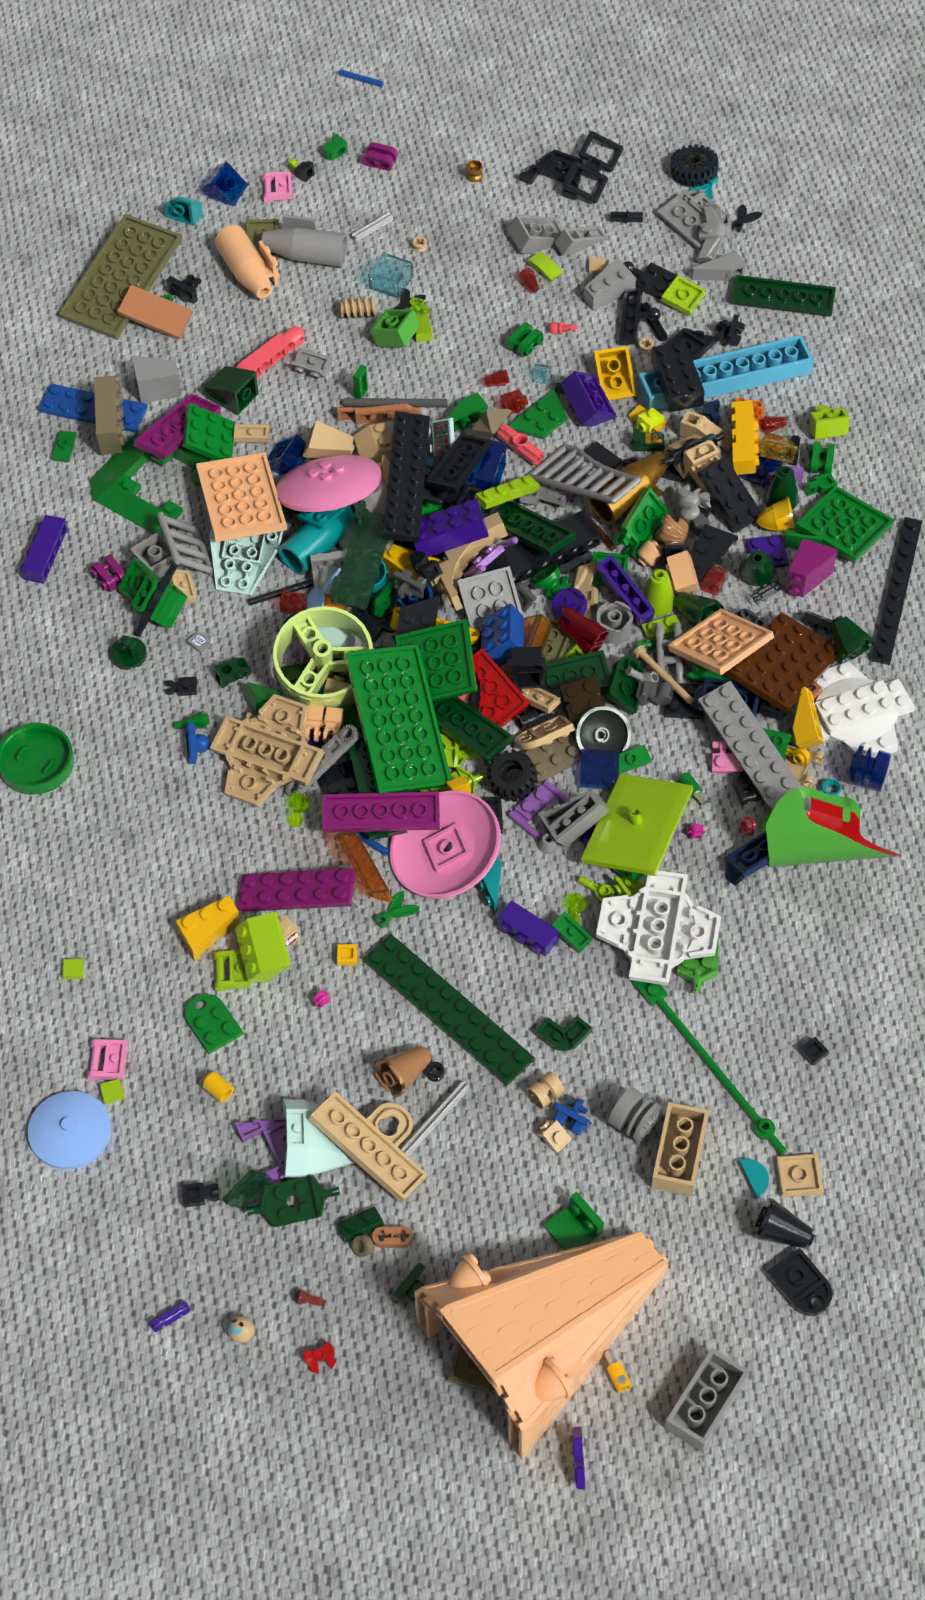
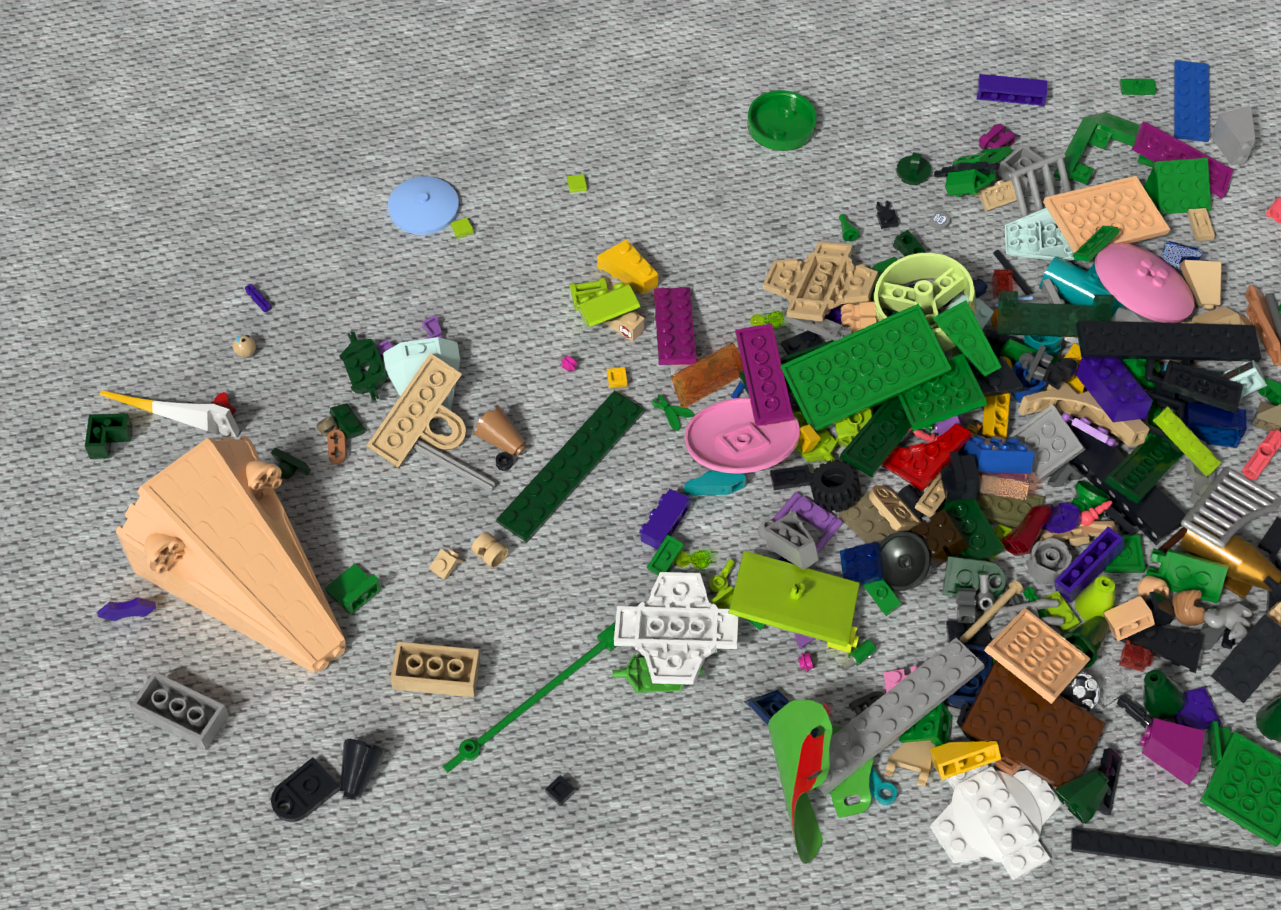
camera: 80 degrees right, 0 degrees up
(109, 415) = (1175, 101): dark tan brick -> none
(113, 1062) = (490, 220): bright pink plate -> none
(195, 743) = (822, 230): blue tile -> none
(195, 1194) = (368, 300): black plate -> none
(213, 1024) = (535, 287): green plate -> none
(217, 1086) = (471, 298): yellow brick -> none
(232, 388) = (1248, 199): dark green slope -> none
(247, 1189) = (366, 325): clear green plate -> none
(282, 507) = (1096, 243): none -> green tile
(302, 1297) = (277, 386): clear red piece -> none
(339, 1487) = (103, 430): none -> dark green brick
(340, 1376) = (202, 416): none -> white plate
(380, 624) = (968, 336): none -> green wing
(566, 1038) = (550, 563): dark green plate -> none
(568, 579) = (1088, 517): none -> coral bar
(580, 1122) = (468, 576): blue hips -> none
(617, 1373) = (210, 637): yellow piece -> none
(632, 1112) = (466, 624): light grey wheel -> none
(756, 1176) = (416, 745): teal tile -> none
(777, 516) = (1243, 716): yellow helmet -> none
(799, 755) = (916, 754): yellow plate -> none
(799, 1175) = (421, 785): tan tile -> none
(869, 767) = (914, 825): clear blue wheel -> none

